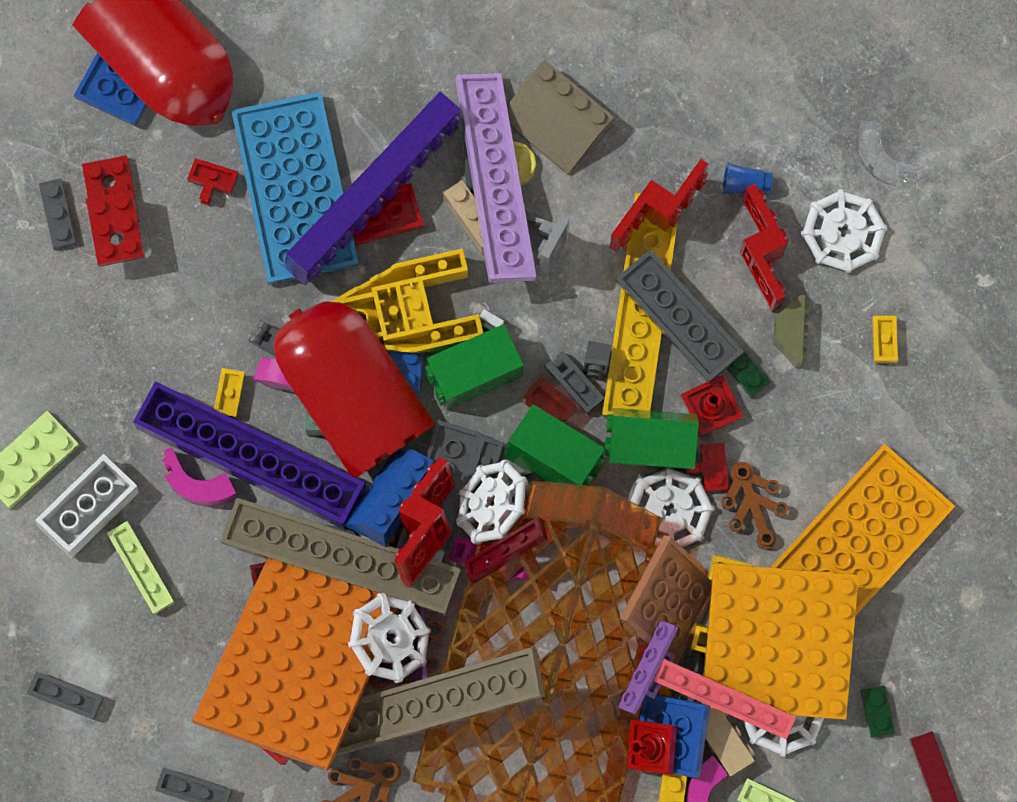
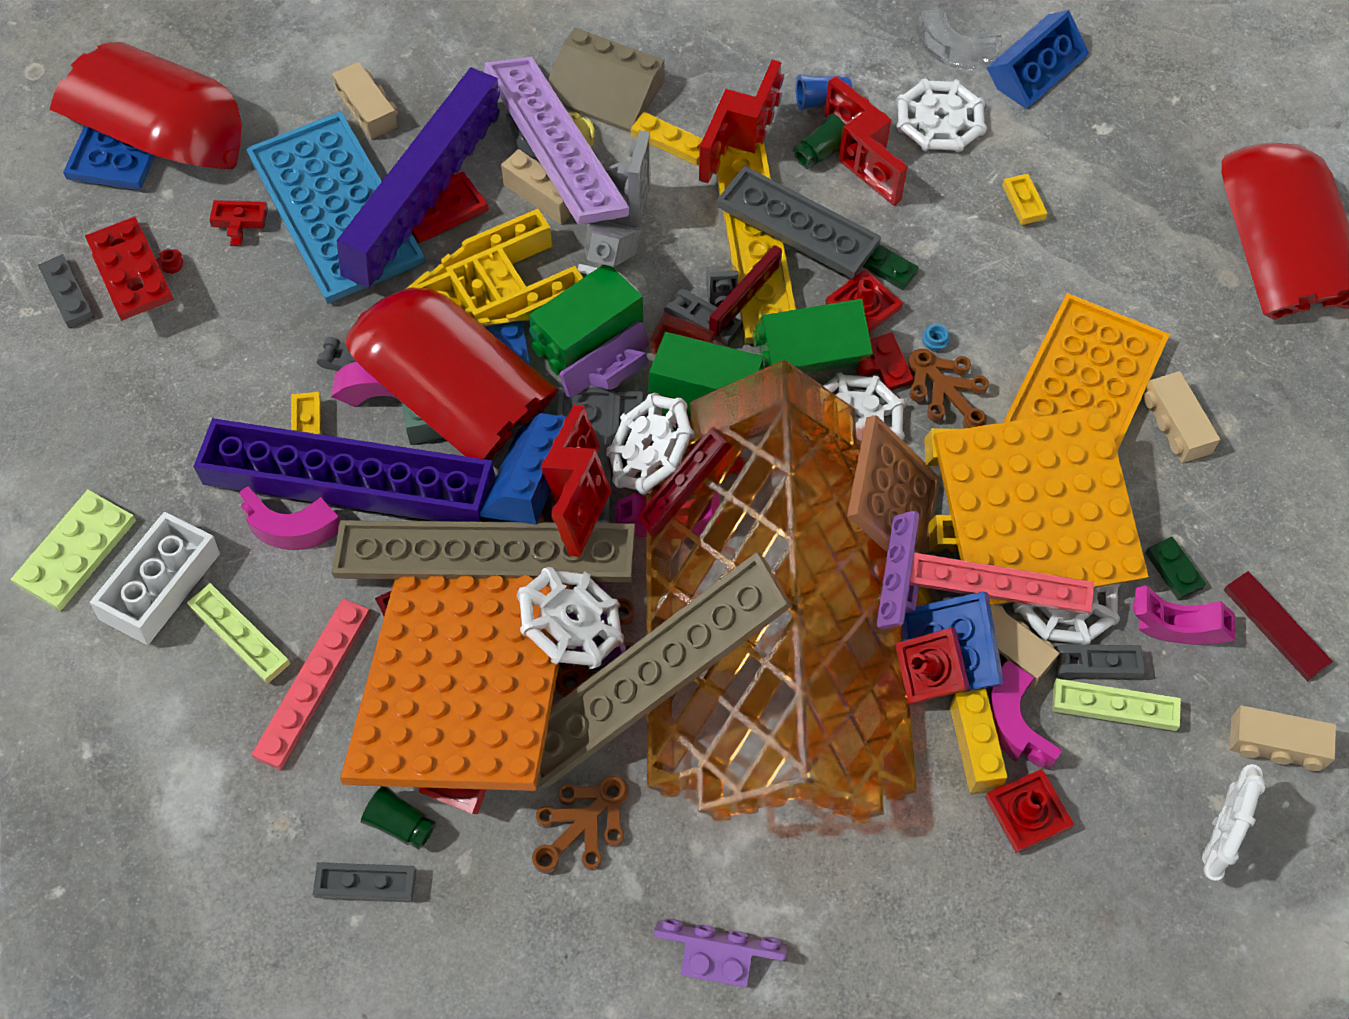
camera: 15 degrees left, 15 degrees down
(65, 695) = (169, 809): dark grey plate -> none
(150, 212) = (170, 261): none -> red plate
(187, 623) = (311, 684): none -> coral plate
(228, 752) = (397, 818): none -> dark green plant
(345, 83) = (365, 100): none -> tan brick
(483, 411) = (609, 362): none -> medium lavender bracket
(511, 303) = (610, 242): none -> light grey slope
(598, 191) = (669, 137): none -> yellow plate
(613, 373) = (745, 290): none -> dark red tile
(726, 236) = (820, 143): none -> dark green plant
(761, 447) = (936, 331): none -> dark azure plate
(787, 772) = (1100, 661): none -> dark grey plate
(790, 331) = (923, 214): olive slope -> none
(861, 759) = (1182, 623): none -> dark pink arch
(932, 584) = (1180, 417): none -> tan brick
(952, 195) = (1039, 59): none -> blue slope

